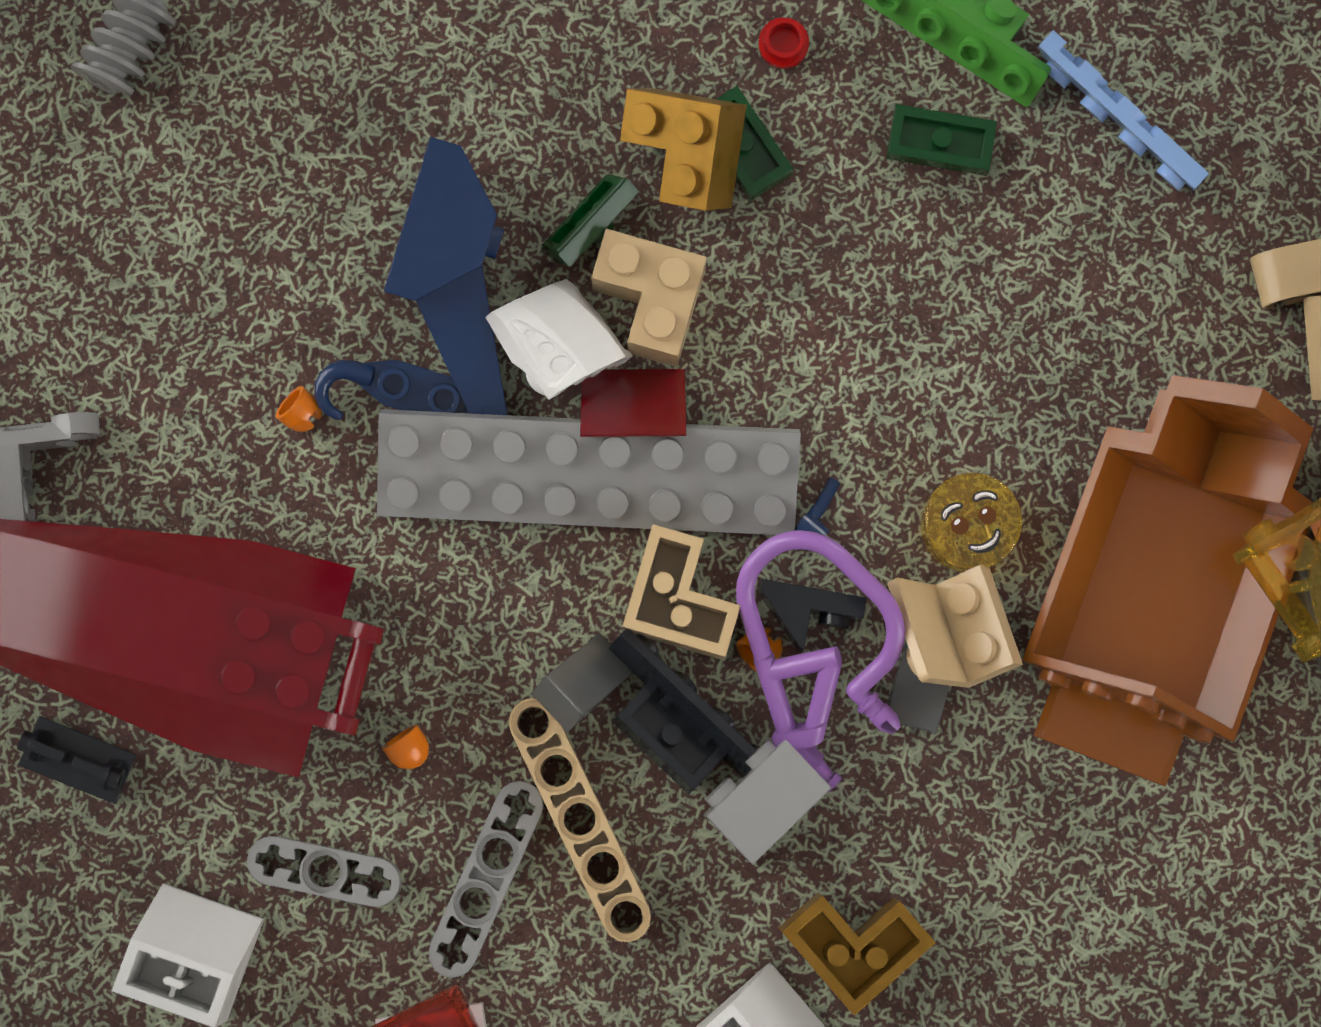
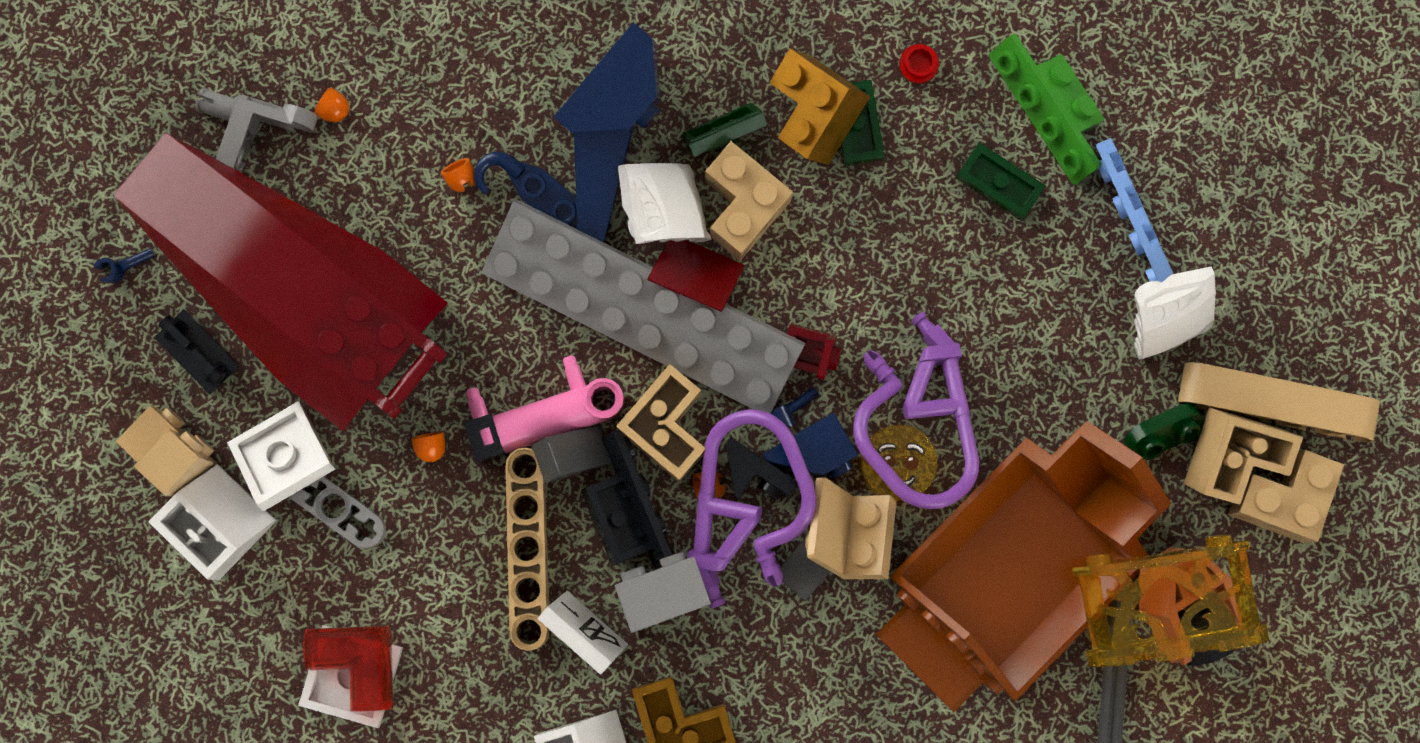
camera: 20 degrees right, 0 degrees up
(94, 897) = (166, 452): none -> tan brick
(110, 395) = (332, 106): none -> orange hinge
(235, 840) = (280, 456): none -> white tile
(480, 875) = (440, 557): light grey beam -> none
(526, 659) = (521, 427): none -> bright pink piece
(692, 888) = (583, 631): none -> white tile
(820, 432) = (819, 350): none -> dark red bracket
(878, 542) = (823, 448): none -> dark blue slope
(961, 370) = (940, 352): none -> medium lavender piece
(1212, 202) = (1173, 311): none -> white slope
(1265, 346) = (1165, 431): none -> dark green plate

